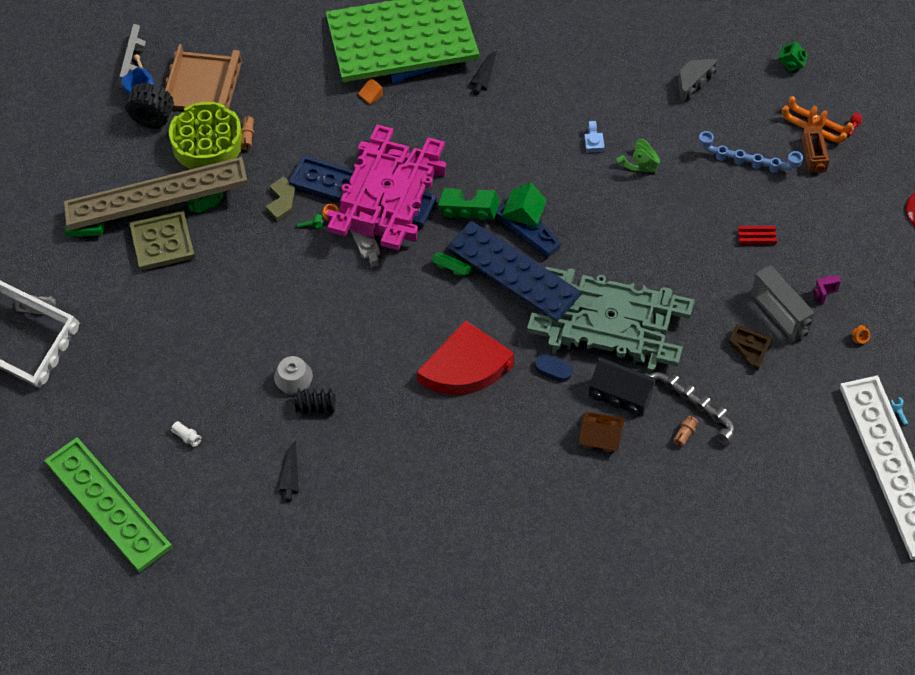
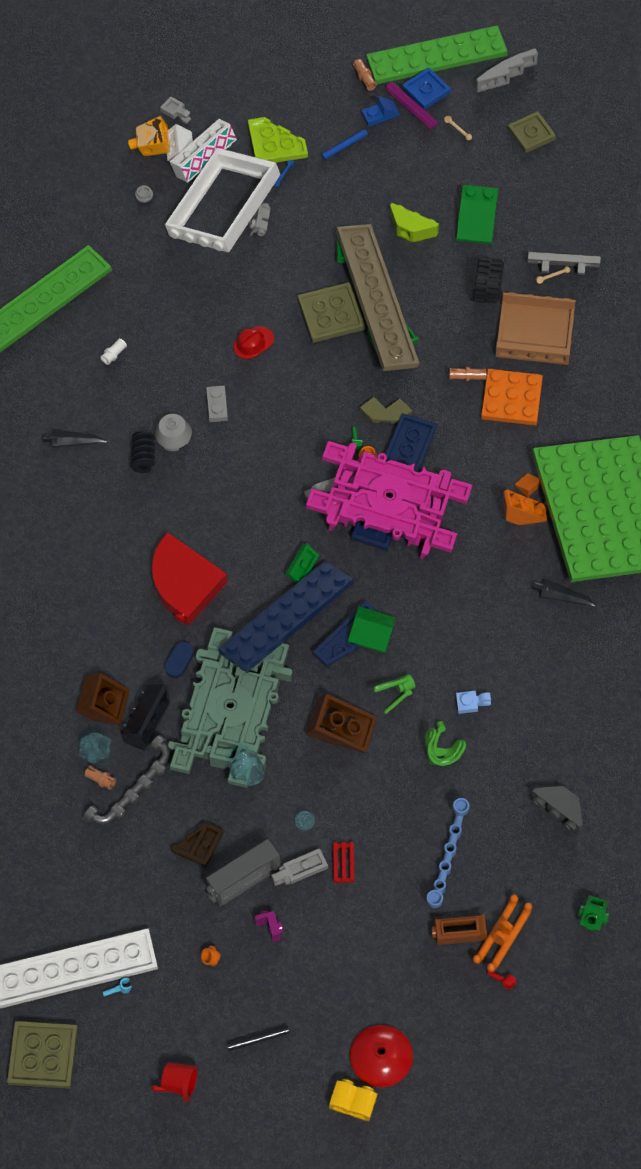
camera: 90 degrees right, 5 degrees up
(62, 120) = (477, 214): none -> green slope
(65, 174) = (412, 225): none -> lime slope
(136, 76) = (519, 269): blue hair -> none
(187, 310) = (253, 342): none -> red piece
(205, 135) = (456, 335): lime brick -> none
(259, 340) = (217, 403): none -> light grey plate
(275, 102) = (512, 397): none -> orange plate
(401, 93) = (522, 509): none -> orange slope
(482, 206) = (375, 563): green arch -> none
(579, 187) = (403, 684): none -> bright green plant
(621, 235) = (340, 724): none -> reddish brown slope
(657, 433) = (94, 747): none -> clear light blue brick
(682, 291) = (249, 766): none -> clear light blue helmet
(719, 263) = (304, 820): none -> clear light blue plate
(763, 258) = (300, 868): none -> light grey hinge

